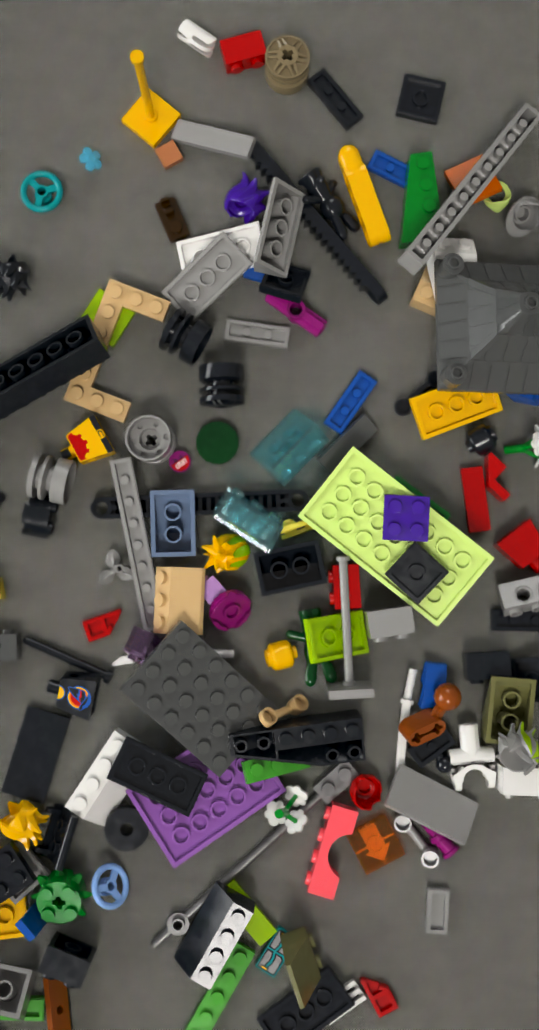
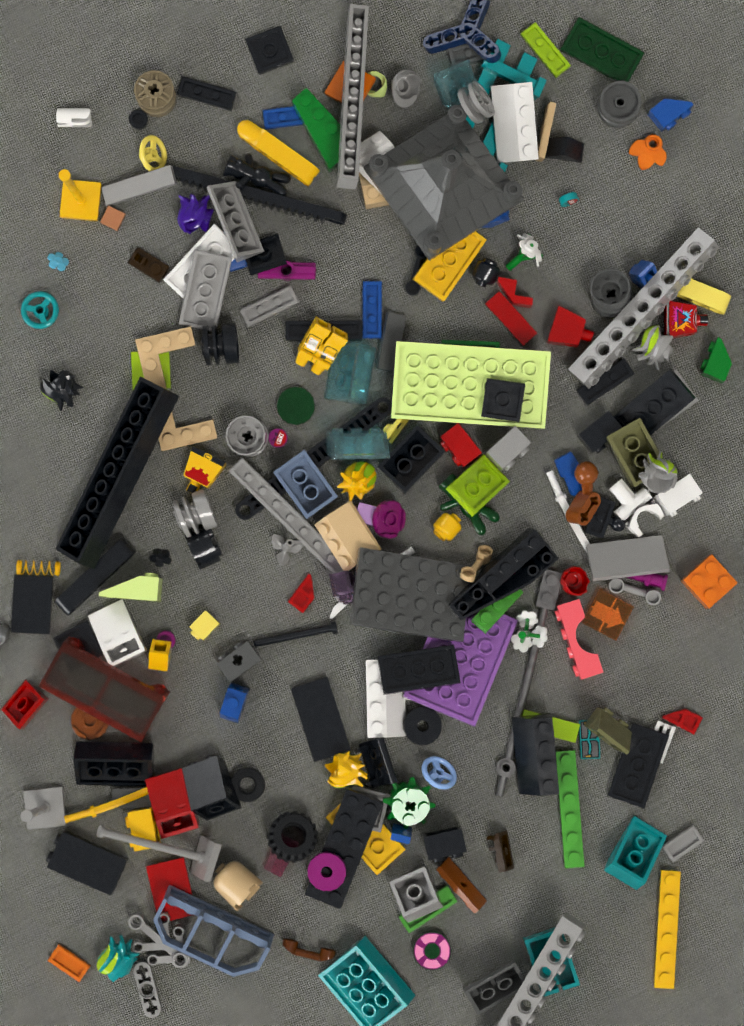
camera: 25 degrees left, 0 degrees up
(77, 692) = (319, 653): black torso -> none
(121, 1000) = (503, 851): none -> dark brown plate
(221, 381) = (272, 363): black wheel -> none
(243, 52) = (115, 105): red brick -> none
(244, 118) = (151, 154): none -> light yellow piece
(255, 81) = (138, 119): none -> black tile
(272, 405) = (320, 345): none -> yellow hips
(291, 390) = (297, 329): none -> black gear
(349, 687) = (511, 514): light grey tile -> none
(406, 517) = (468, 366): dark purple plate -> none
(437, 910) = (684, 631): light grey tile -> none
(494, 881) = (709, 581): none -> orange brick

